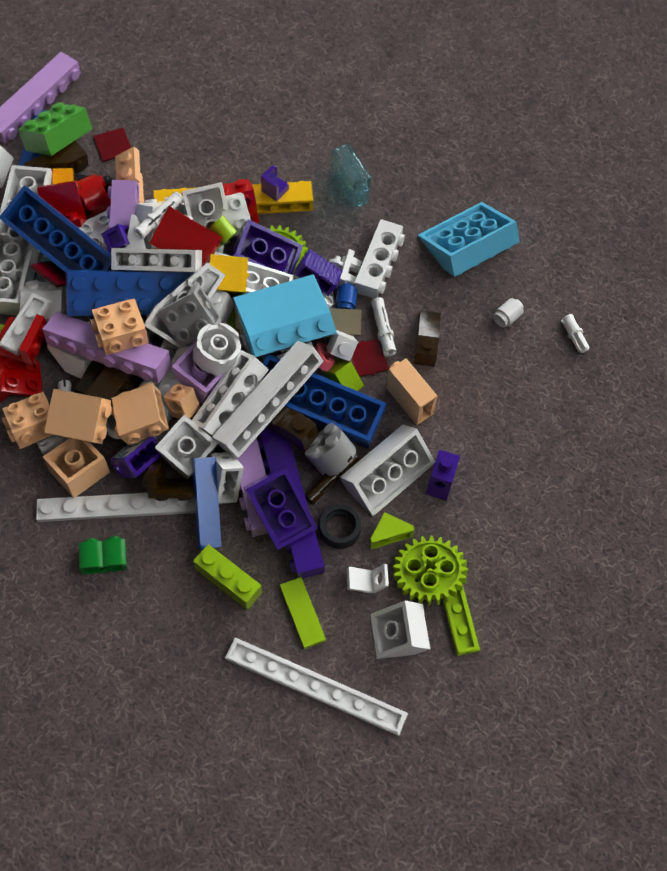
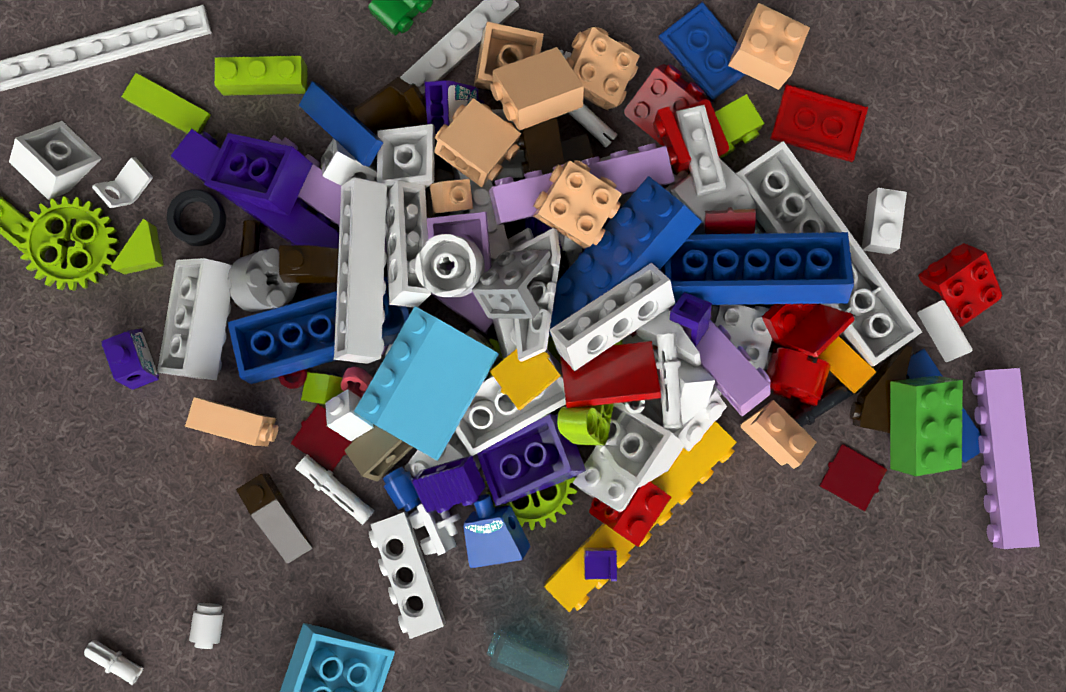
camera: 145 degrees right, 20 degrees up
(318, 236) = (493, 534): none -> torso

